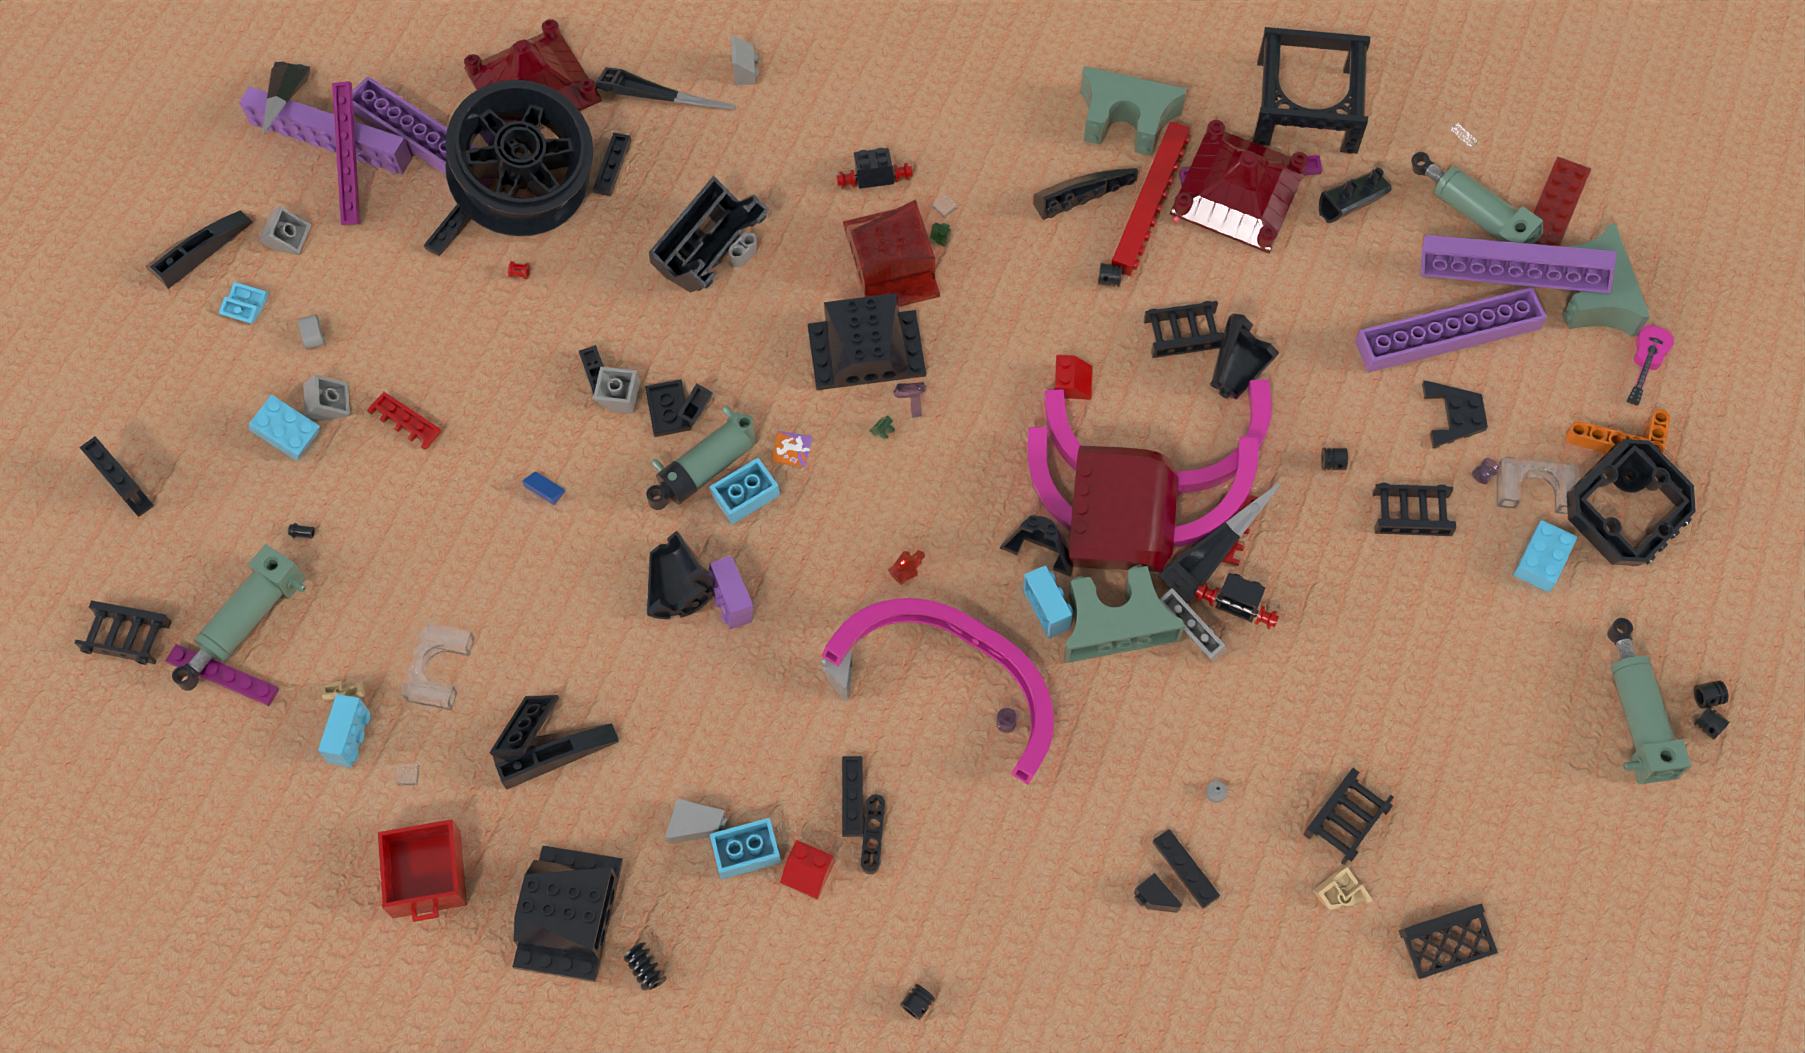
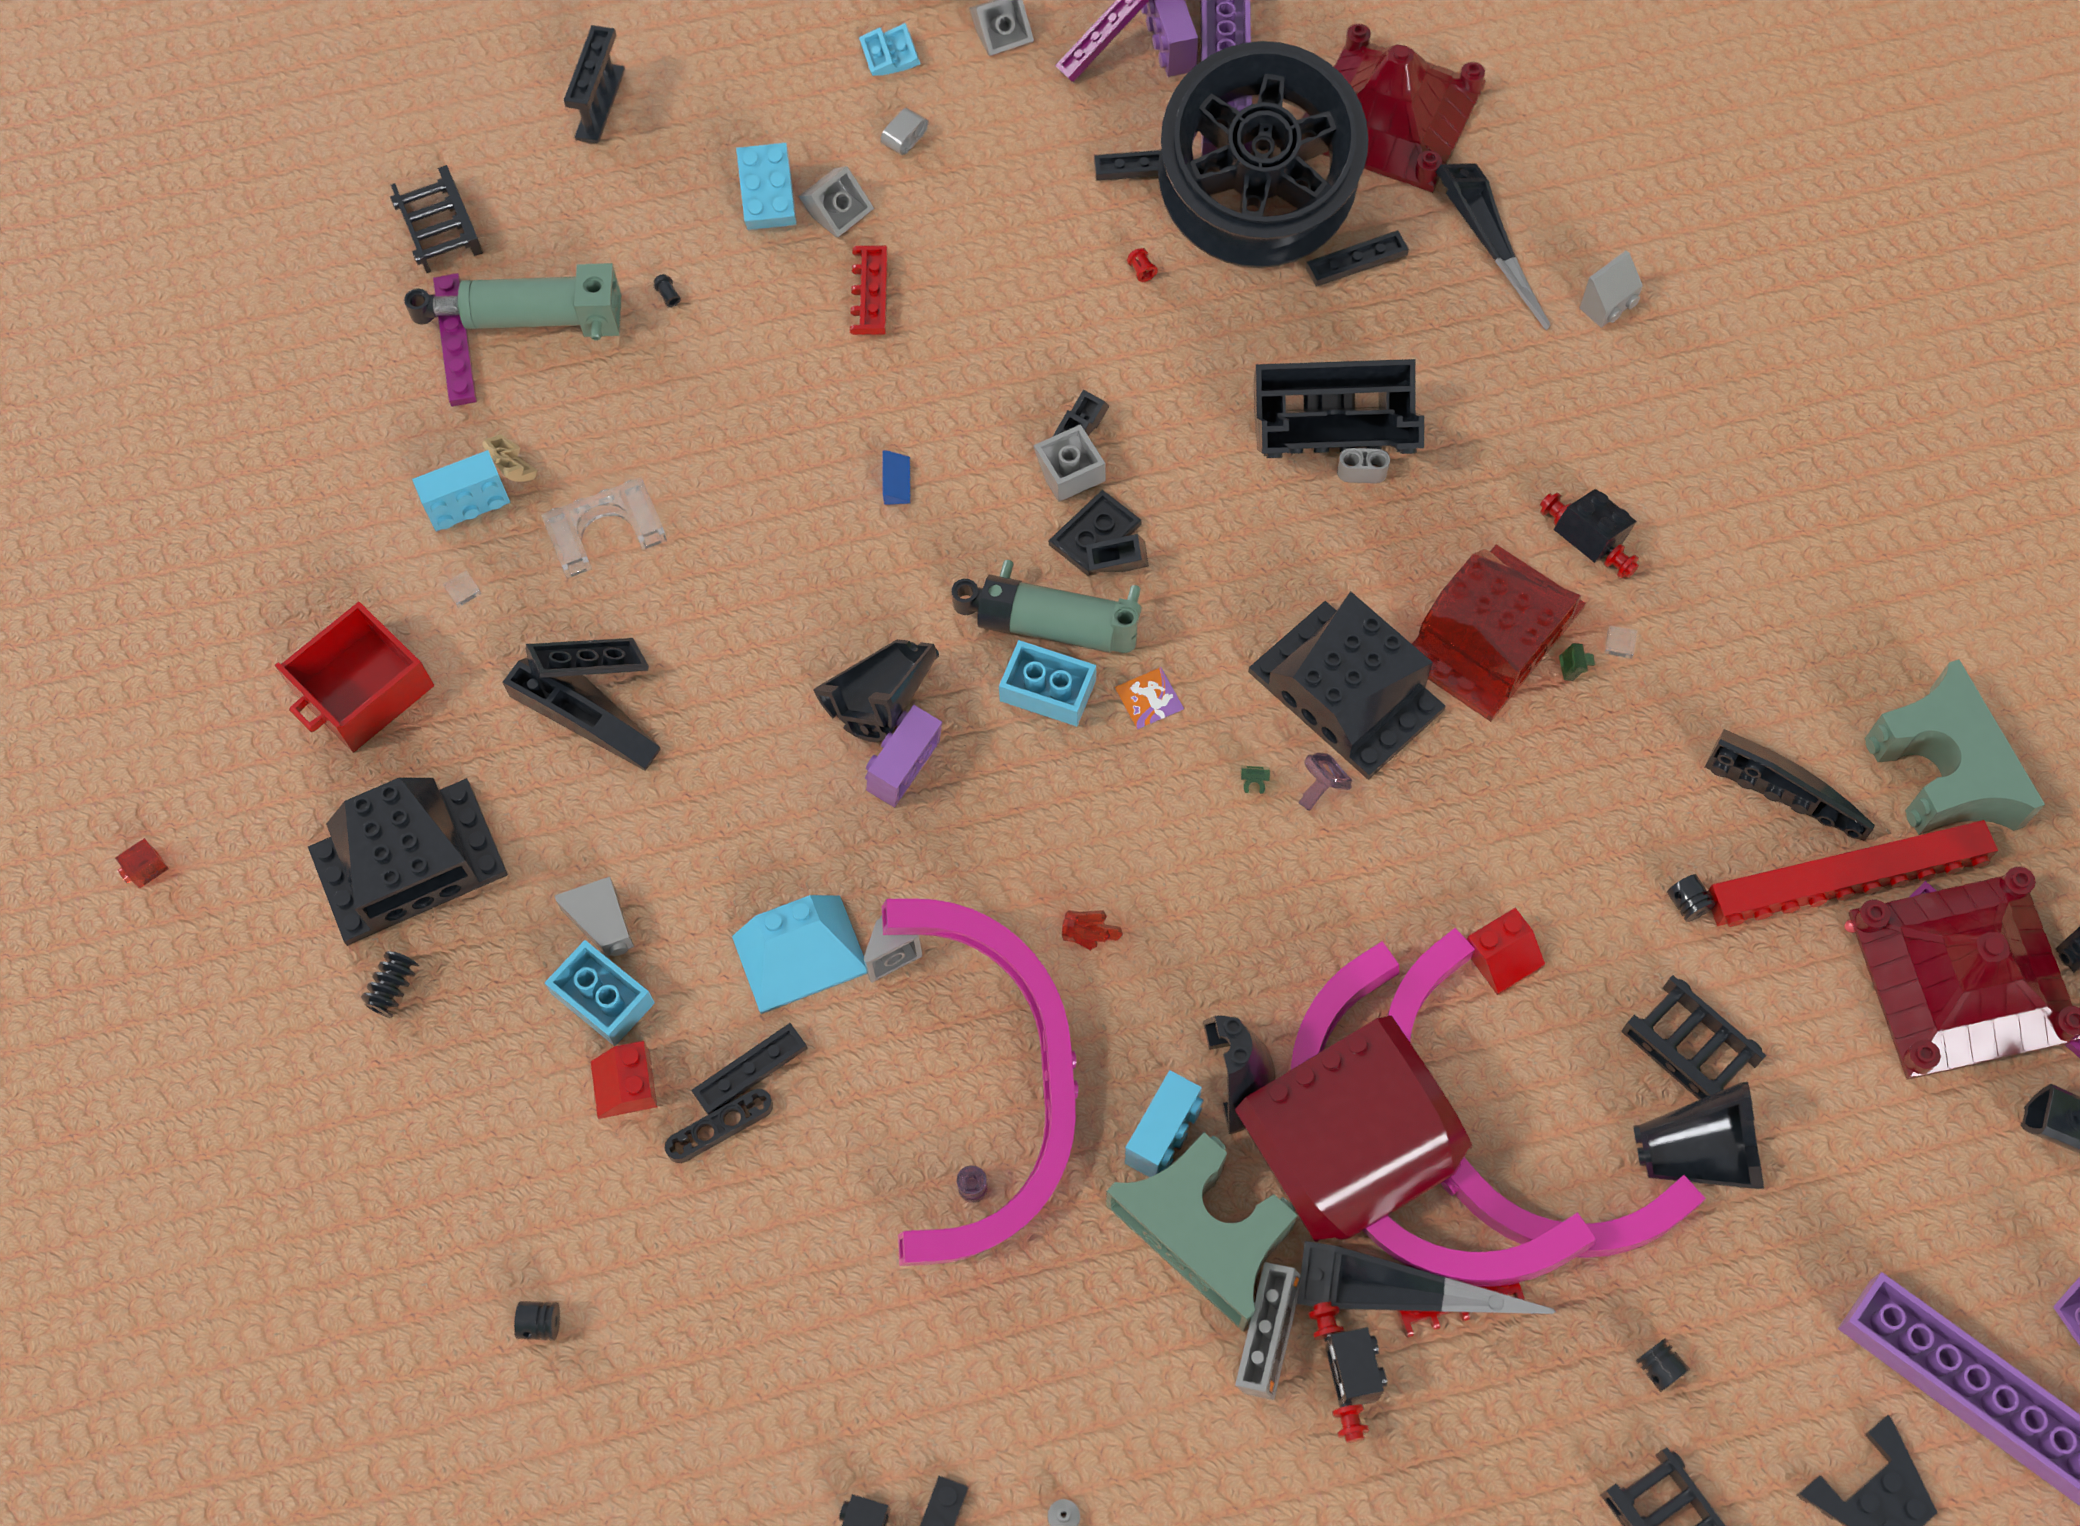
camera: 55 degrees right, 0 degrees up
(801, 727) = (798, 950): none -> medium azure slope

